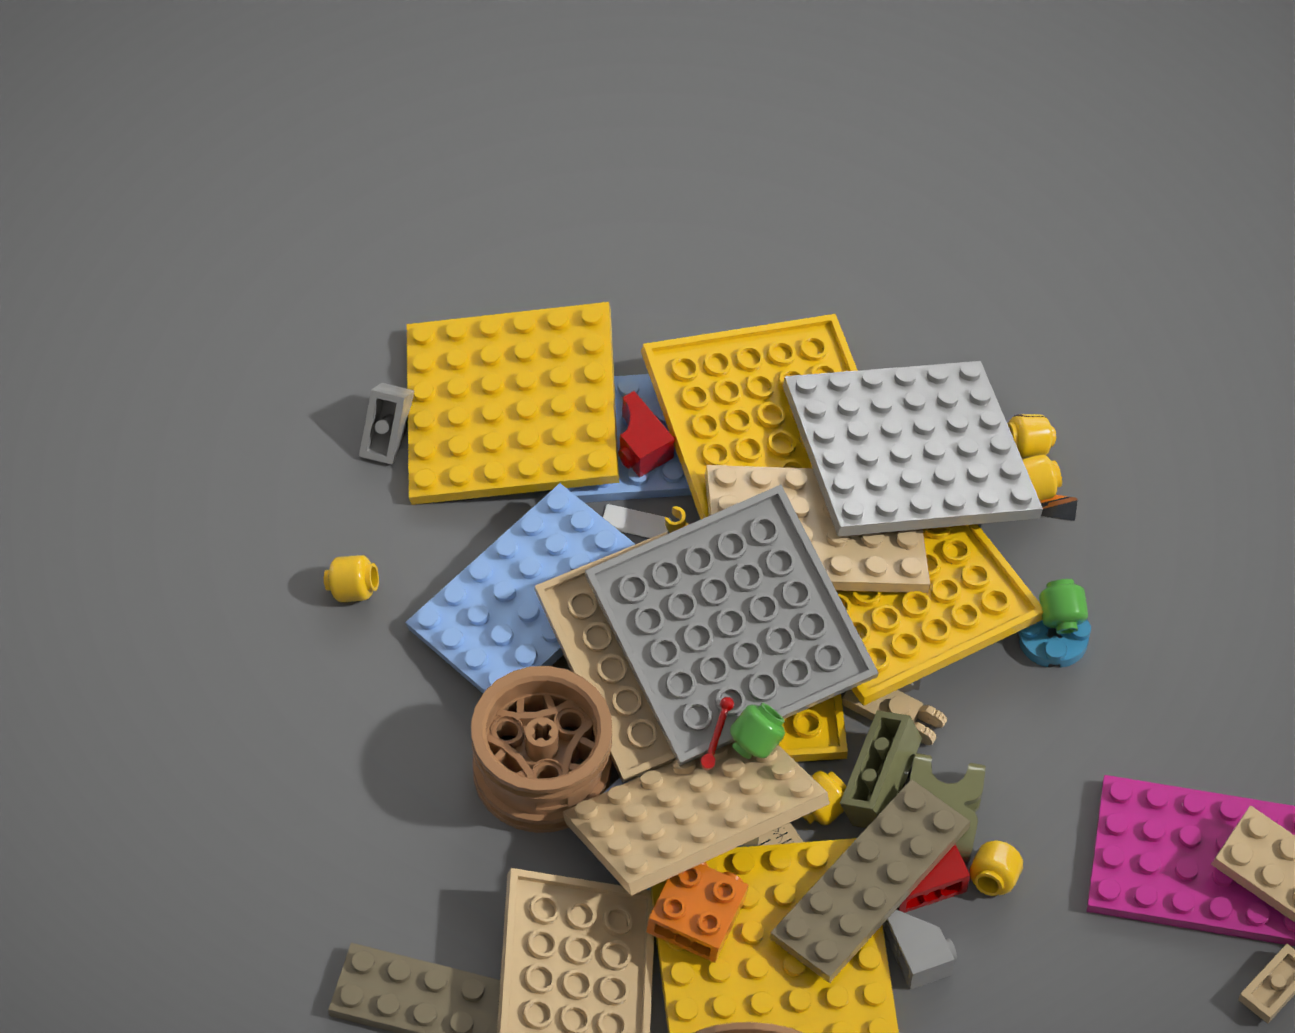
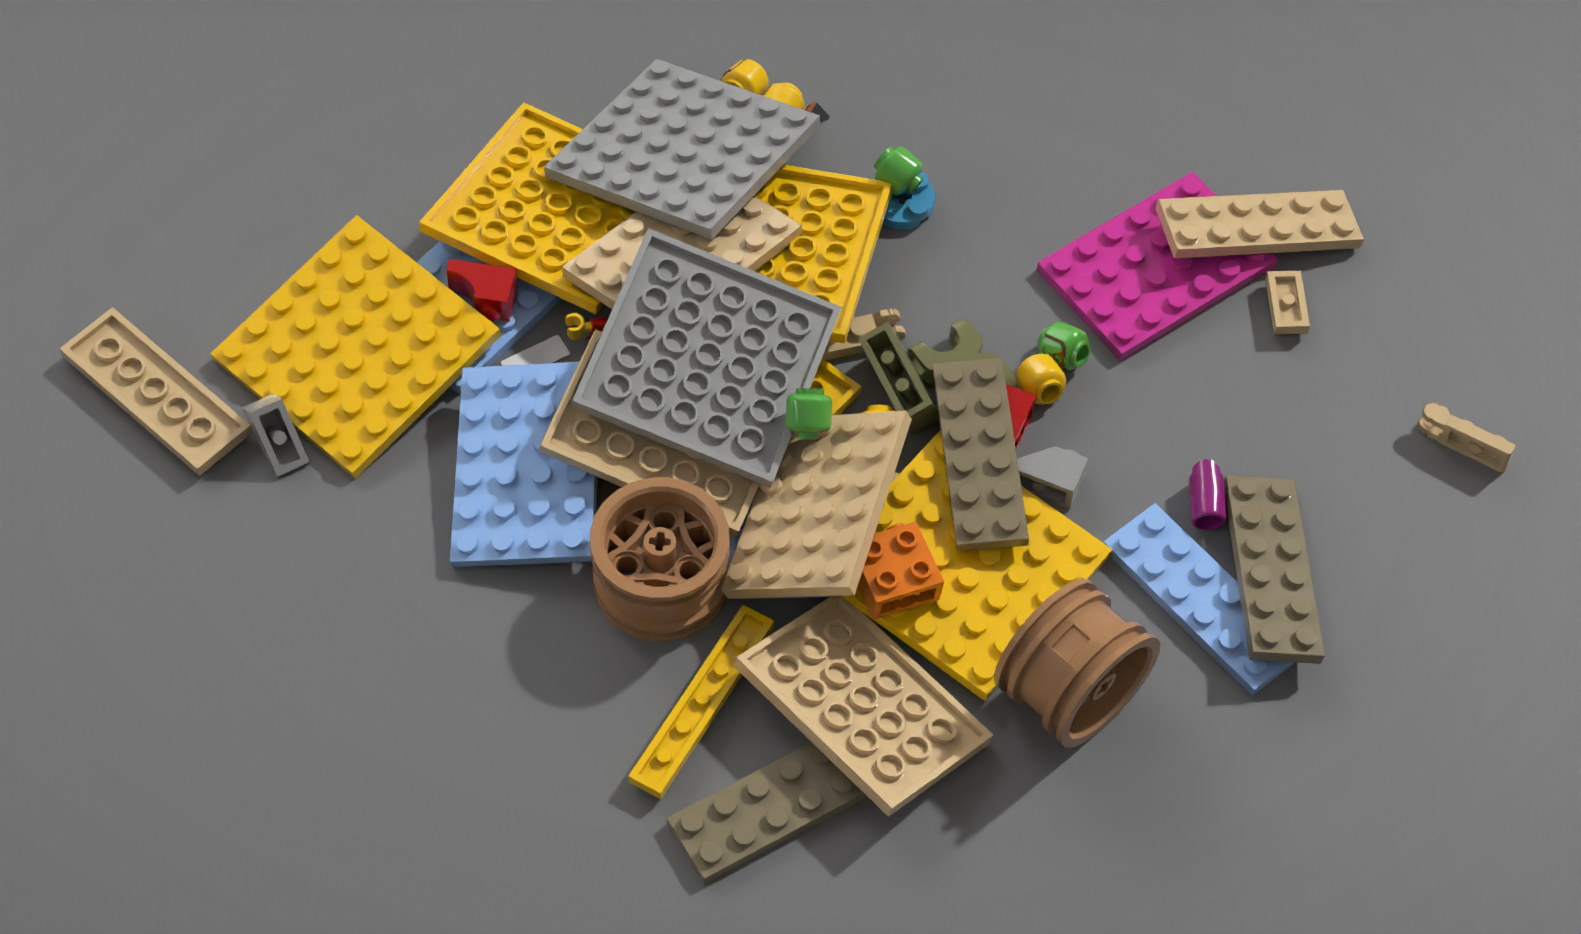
camera: 45 degrees left, 0 degrees up
(340, 321) = (156, 391): none -> tan plate
(351, 578) = (375, 564): yellow head -> none
(461, 882) = (698, 704): none -> yellow plate
(708, 760) = (792, 464): red hinge -> none
(1045, 858) = (1065, 345): none -> bright green head

